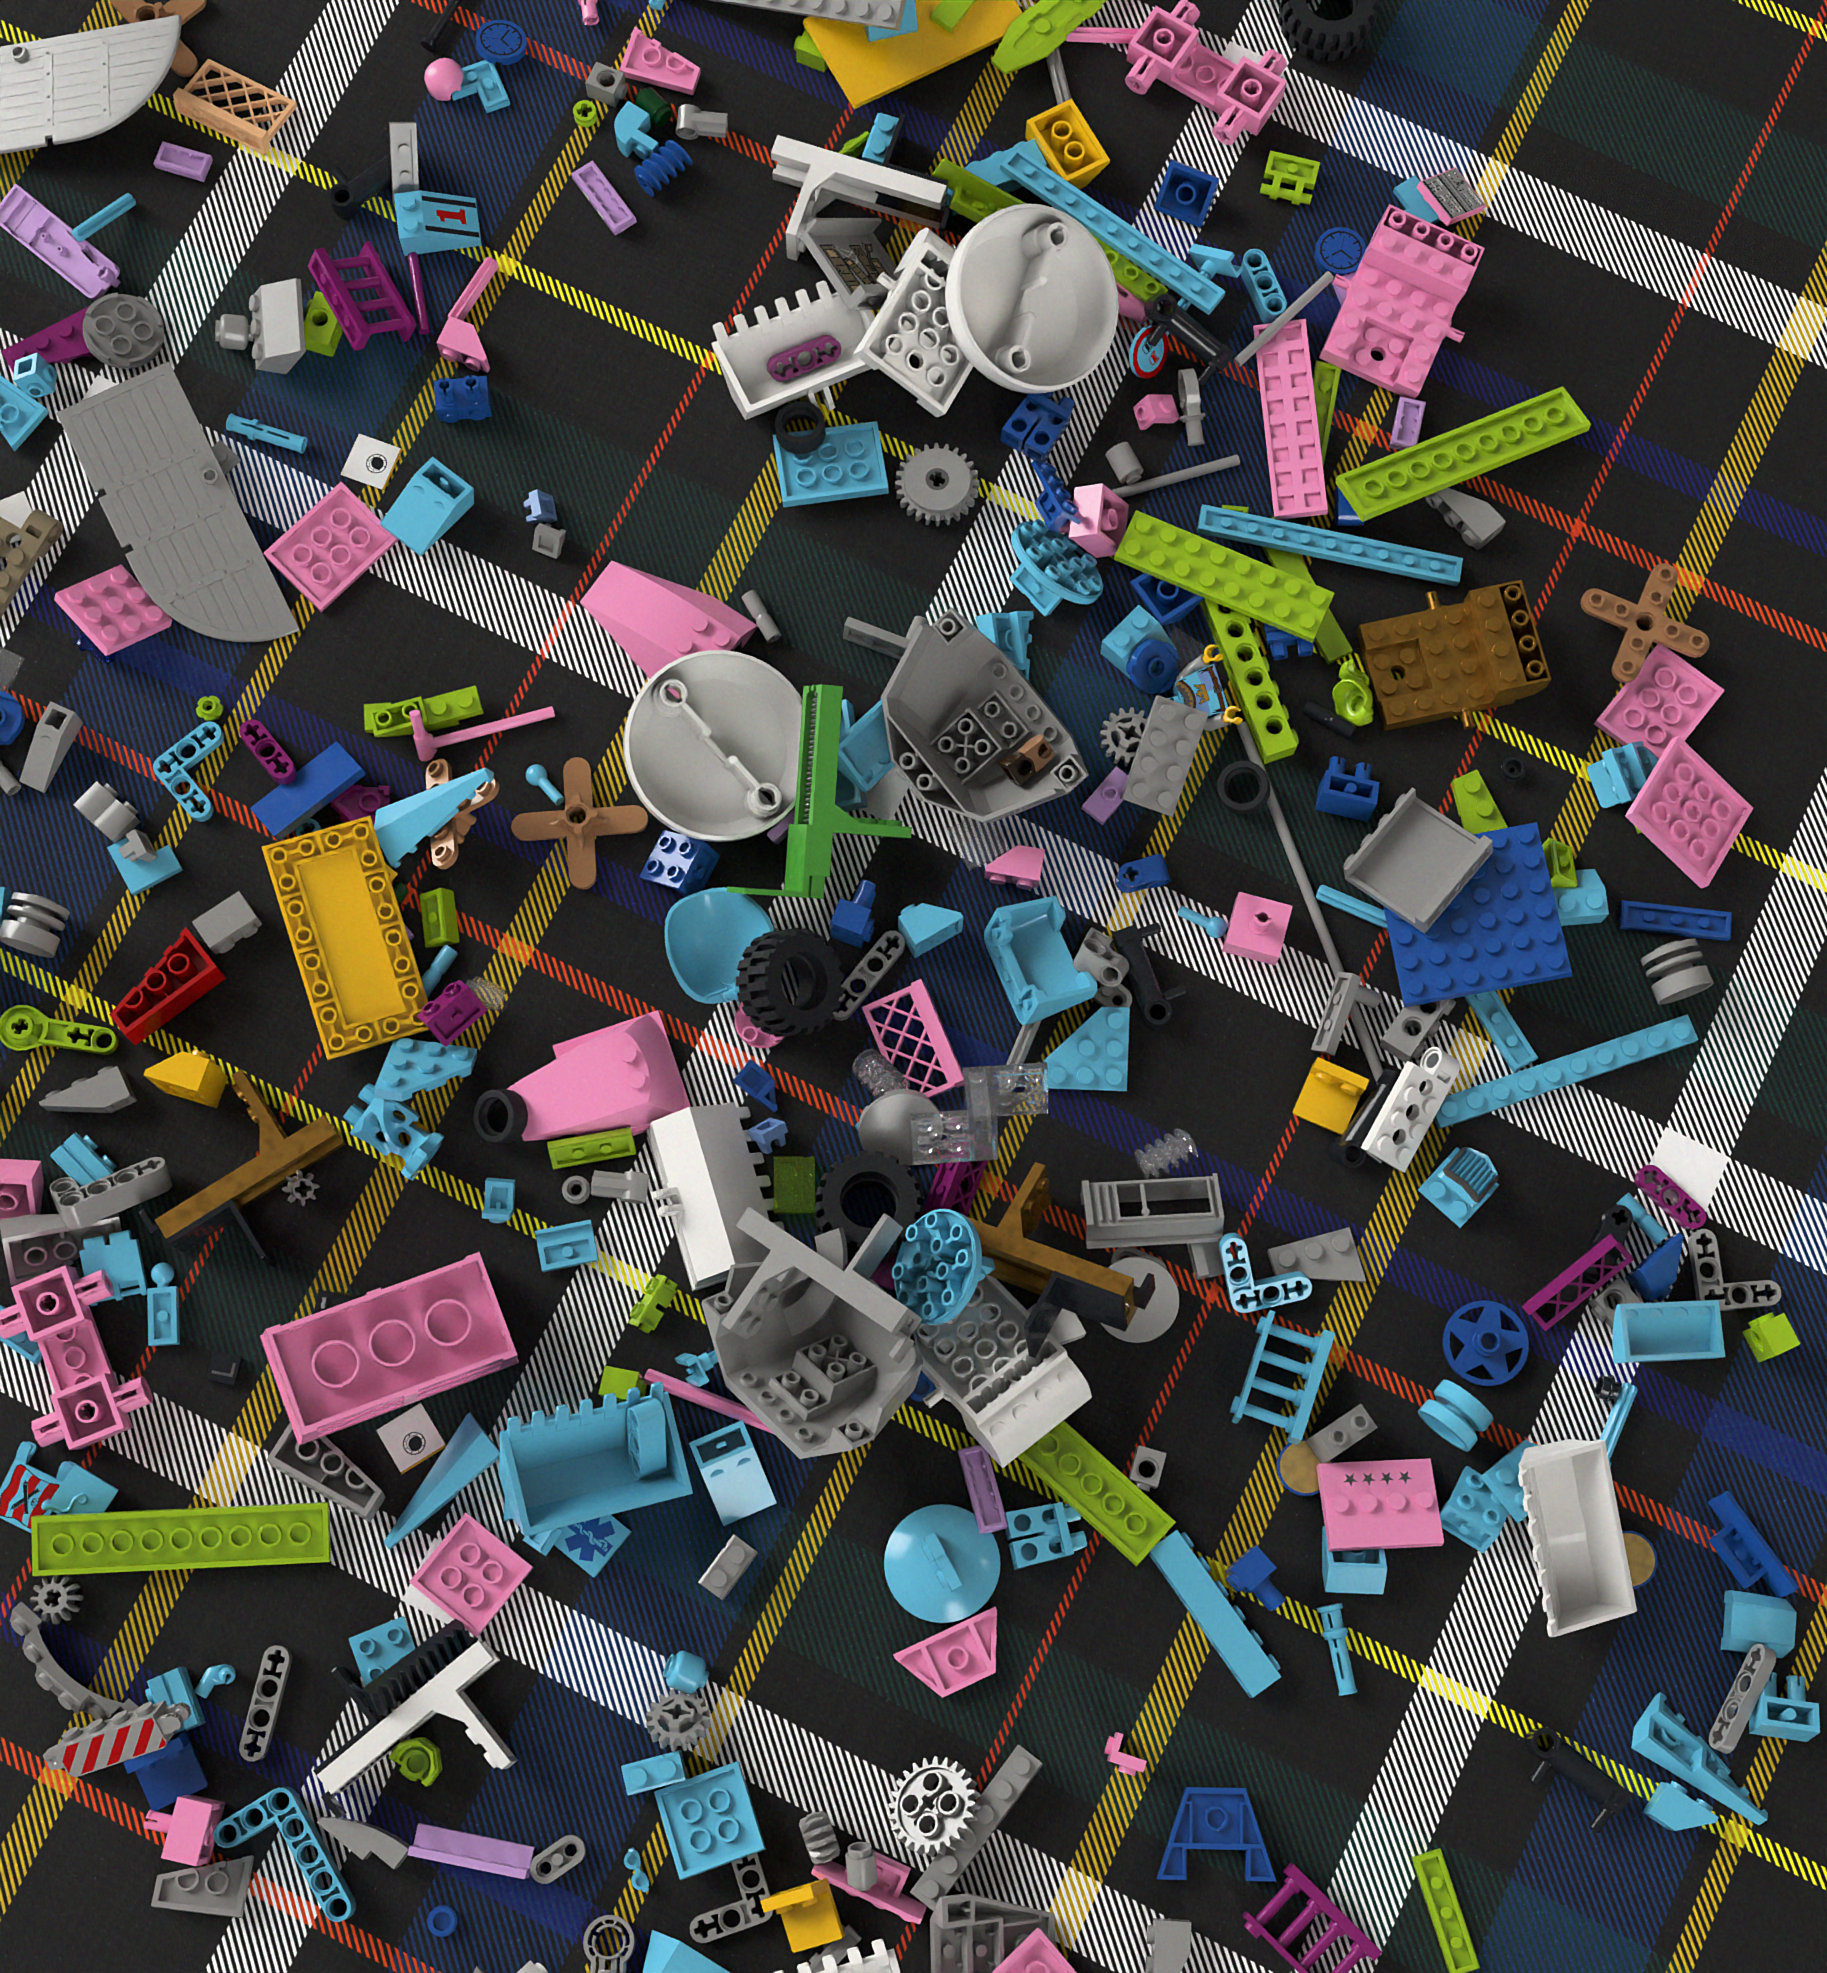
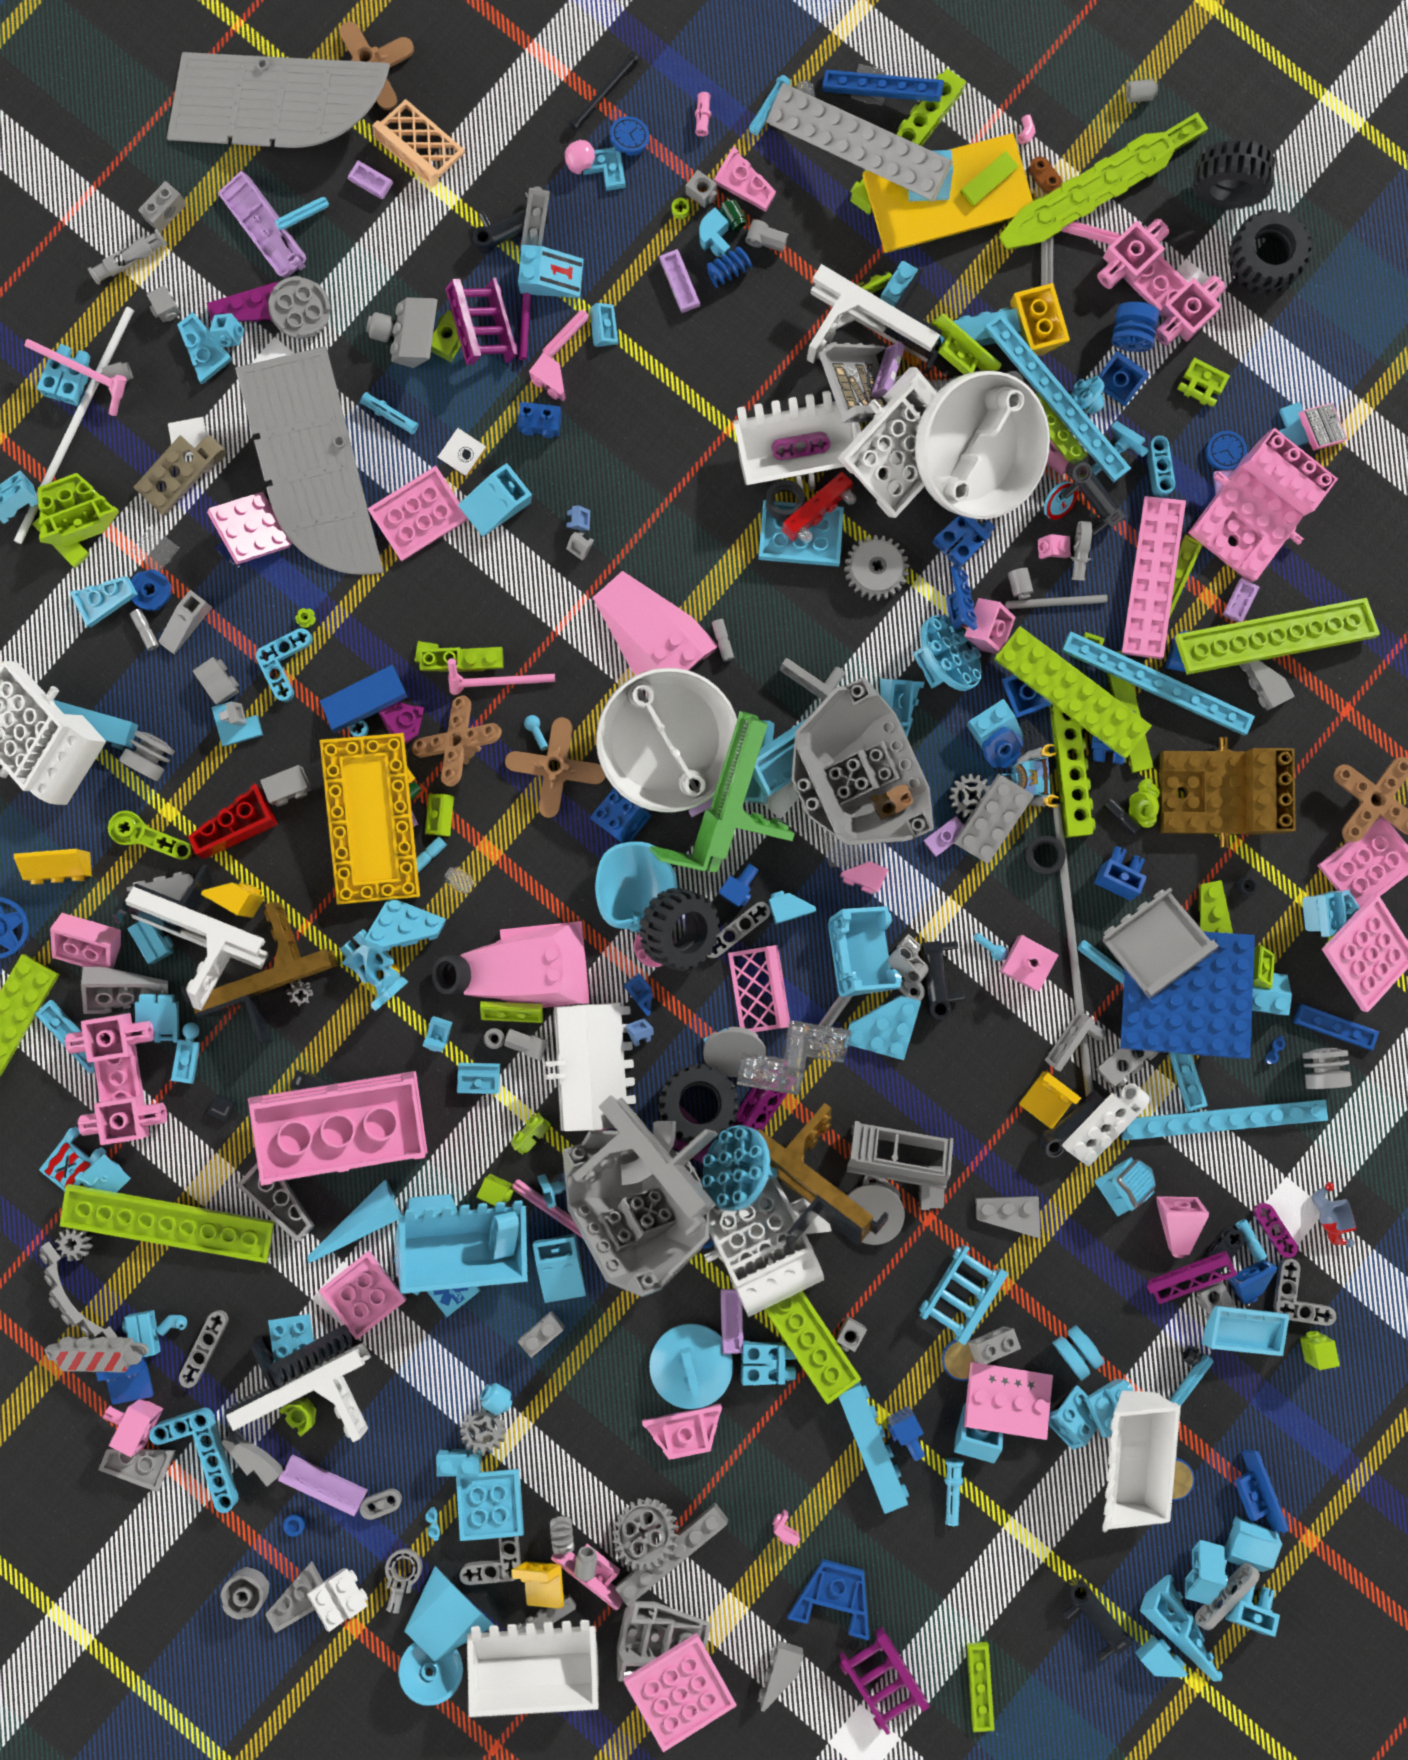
camera: 15 degrees right, 10 degrees up
(109, 1194) = (162, 967): light grey beam -> none
(133, 1124) = (183, 921): none -> white piece
(225, 456) = (354, 425): light grey plate -> none
(268, 763) = (334, 656): magenta beam -> none
(411, 1438) = (341, 1188): white sticker -> none
(423, 814) = (431, 742): medium azure wedge -> none
(452, 1012) = (432, 891): magenta bracket -> none
(519, 270) = (603, 325): none -> medium azure slope
(794, 1184) = (649, 1072): clear neon green plate -> none
(843, 425) = (815, 508): none -> red piece
(878, 1073) = (728, 1009): clear piece -> none
(892, 242) = (888, 370): none -> lavender plate
(1147, 873) = (958, 902): blue piece -> none
(1150, 220) = (1088, 394): none -> medium azure plate
(1165, 1153) = (920, 1113): clear piece -> none
(1187, 129) = (1135, 326): none -> blue wheel
(1247, 1286) = (954, 1221): medium azure beam -> none
(1283, 319) = (1169, 497): light grey piece -> none
(1485, 1343) = (1113, 1303): blue wheel -> none
(1545, 1216) = (1182, 1222): none -> bright pink slope
(1607, 961) = (1277, 1045): none -> blue piece
(1707, 1673) = (1207, 1573): none -> medium azure brick
(1741, 1160) = (1334, 1216): none -> sand blue piece

